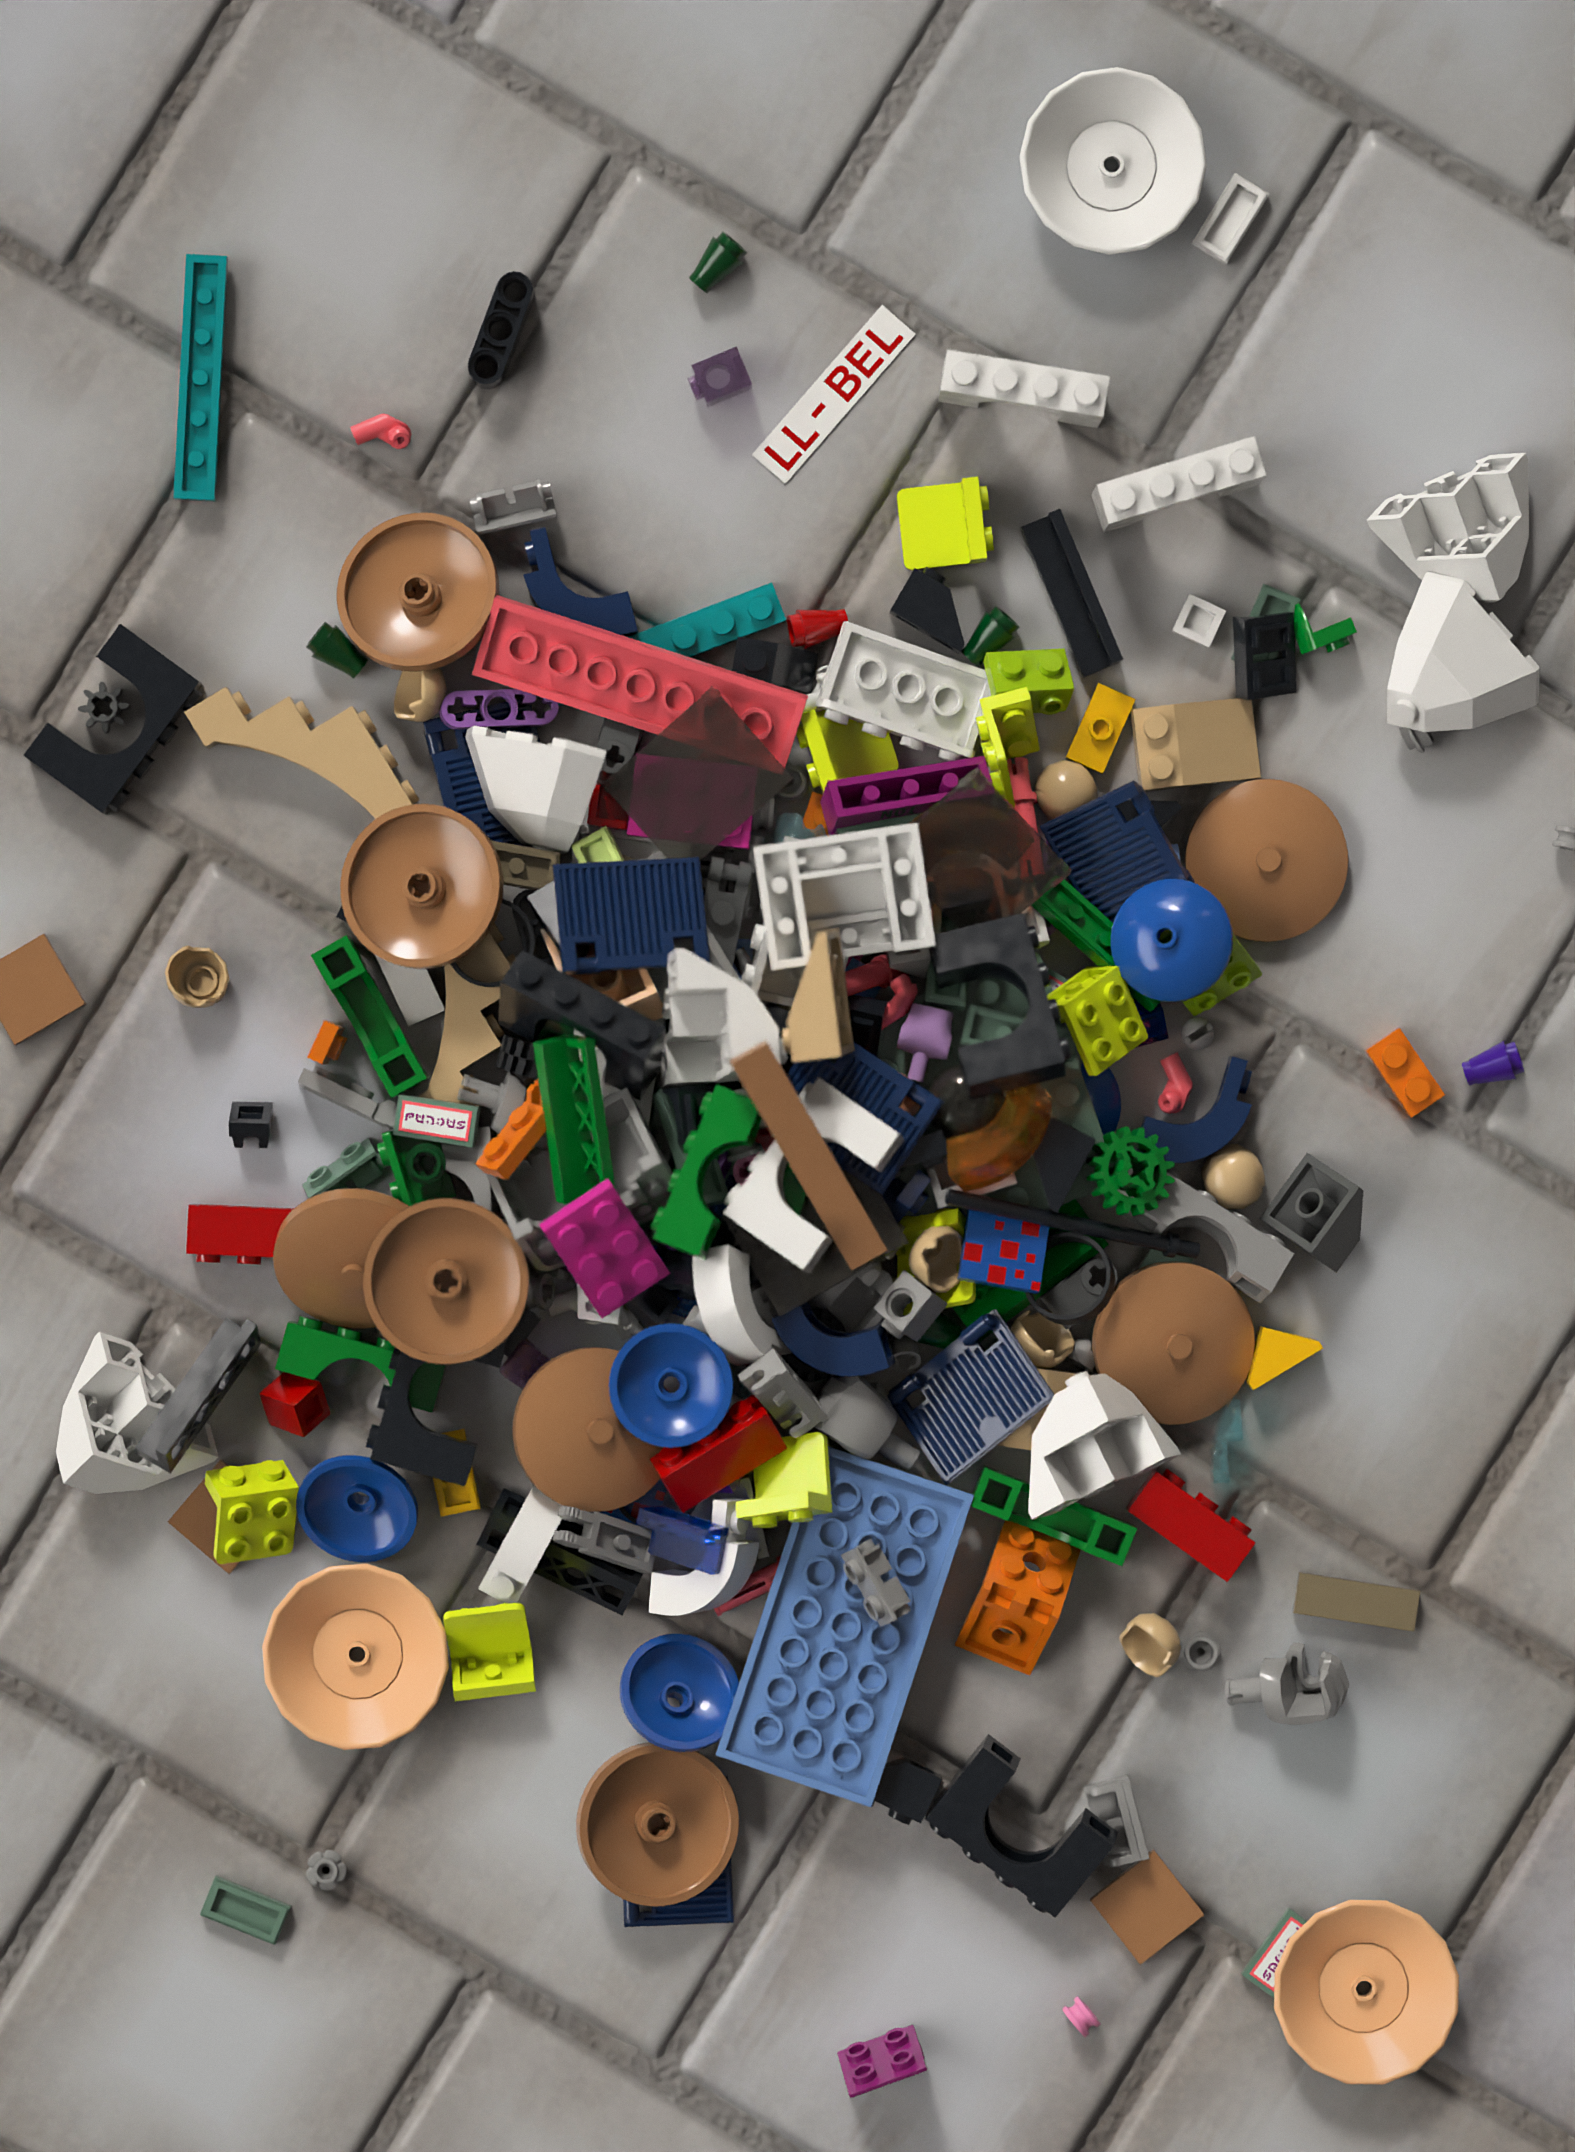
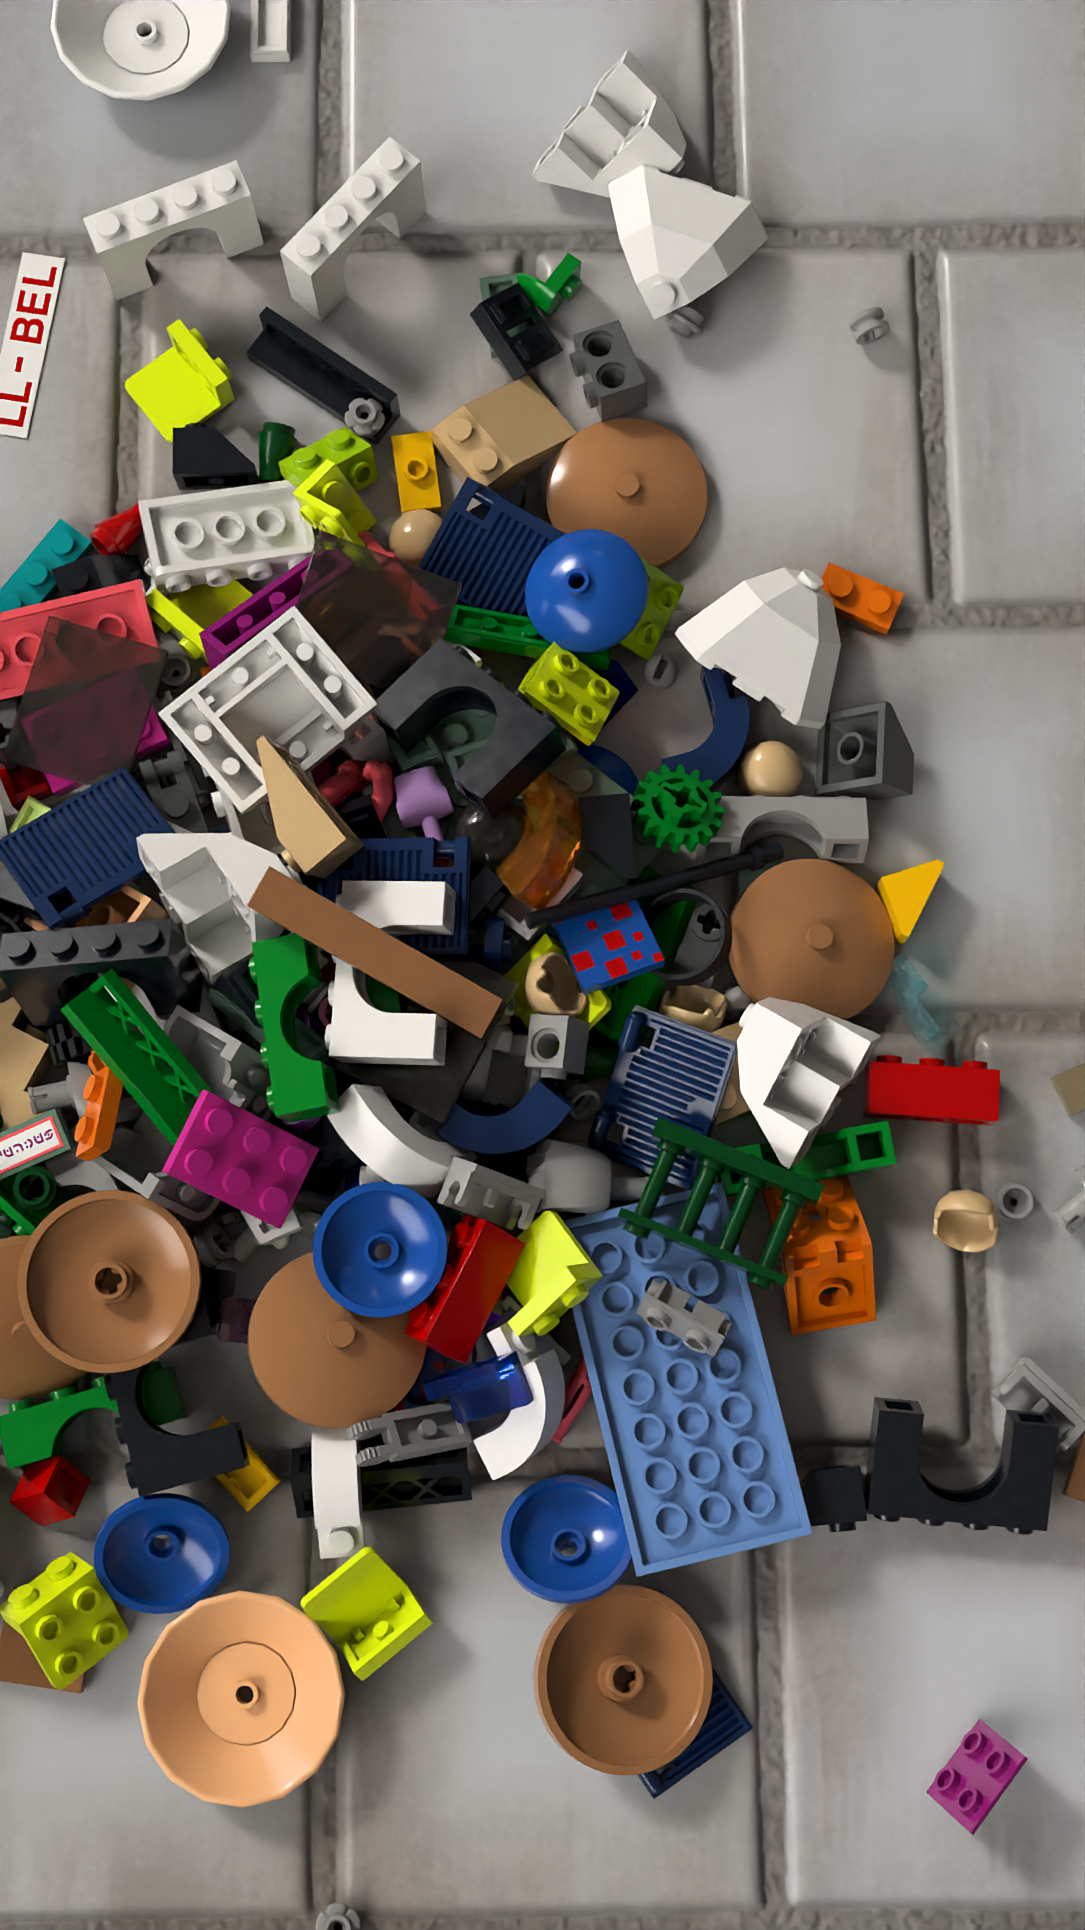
camera: 30 degrees left, 10 degrees down
(999, 1510) = (754, 1177): none -> dark green fence
(1074, 655) = (365, 427): none -> light grey plate
(1177, 1087) = (672, 722): coral arm -> none
(1198, 621) = (444, 338): white plate -> none
(1301, 1076) = (776, 641): none -> white brick
(1327, 746) = (609, 370): none -> dark grey brick
(1494, 1065) = (929, 543): dark purple cone -> none

